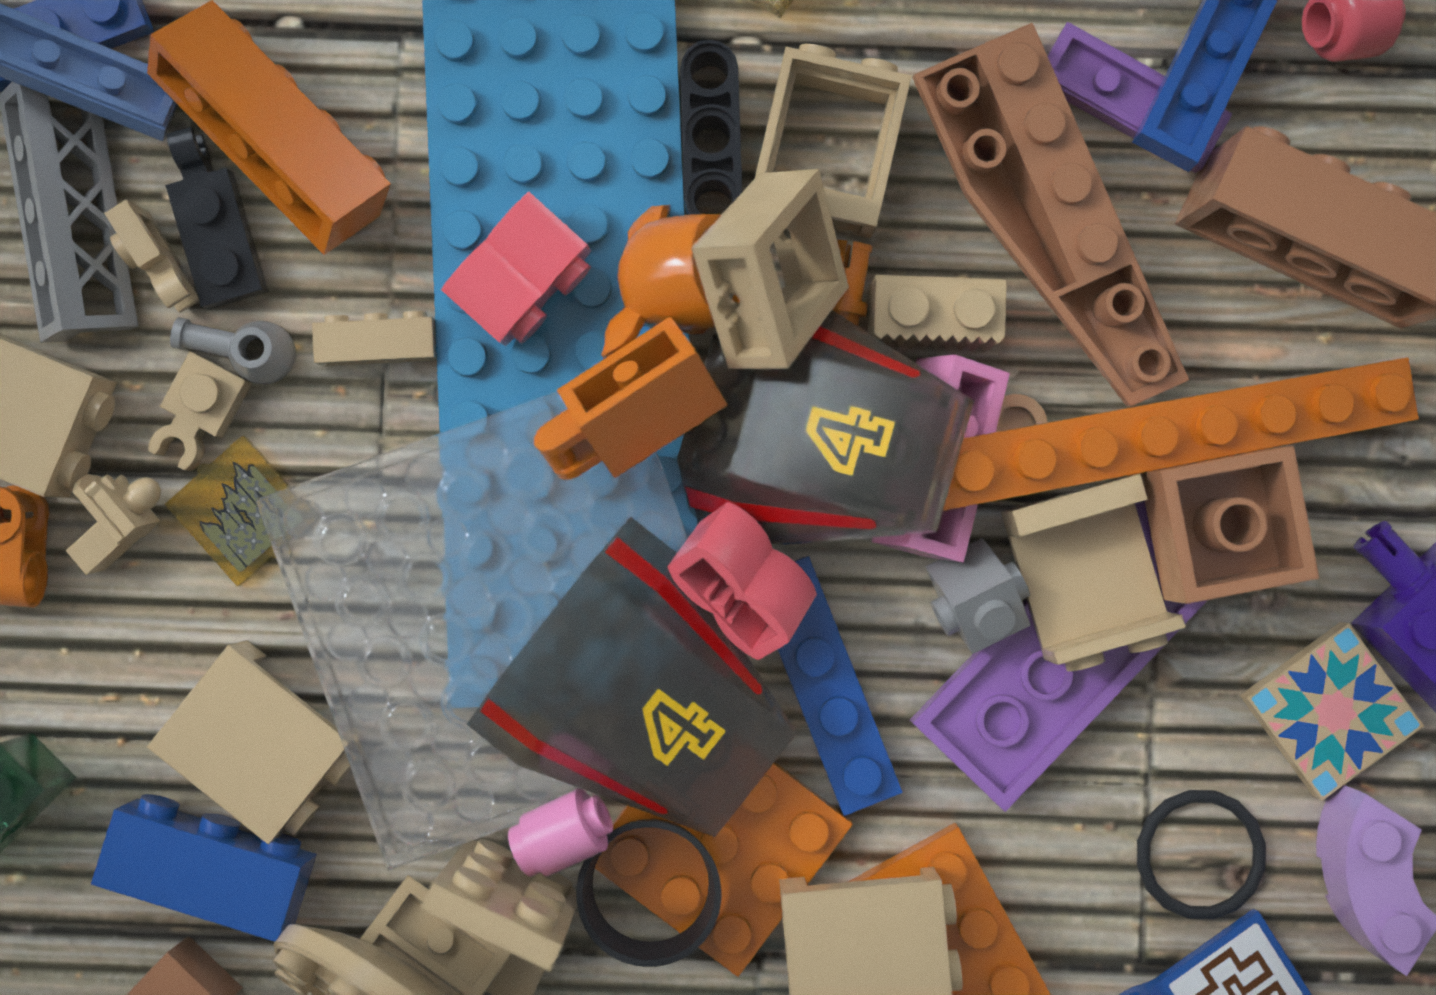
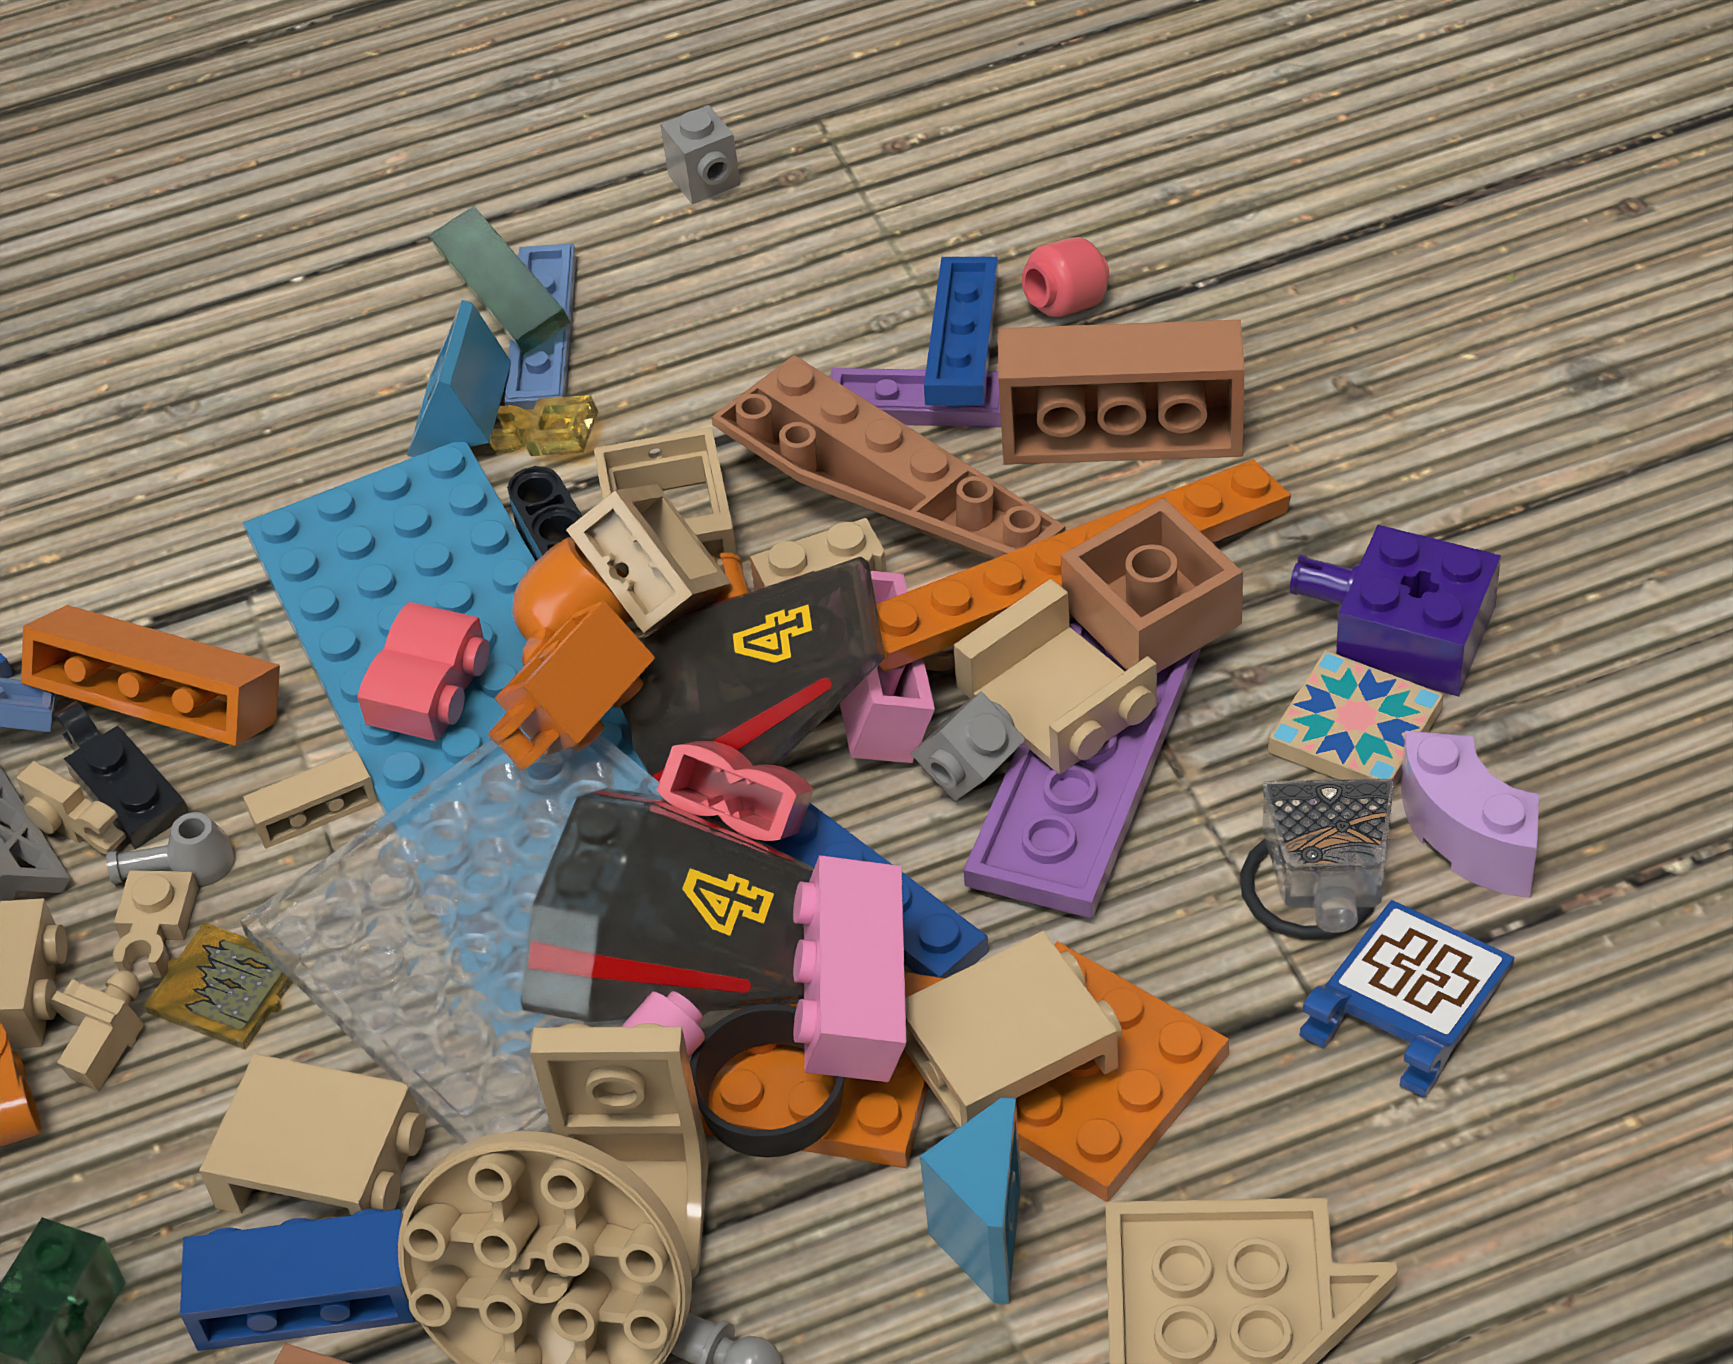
camera: 15 degrees left, 40 degrees down
(757, 854) = (851, 969): none -> bright pink brick
(1235, 864) = (1329, 844): none -> torso

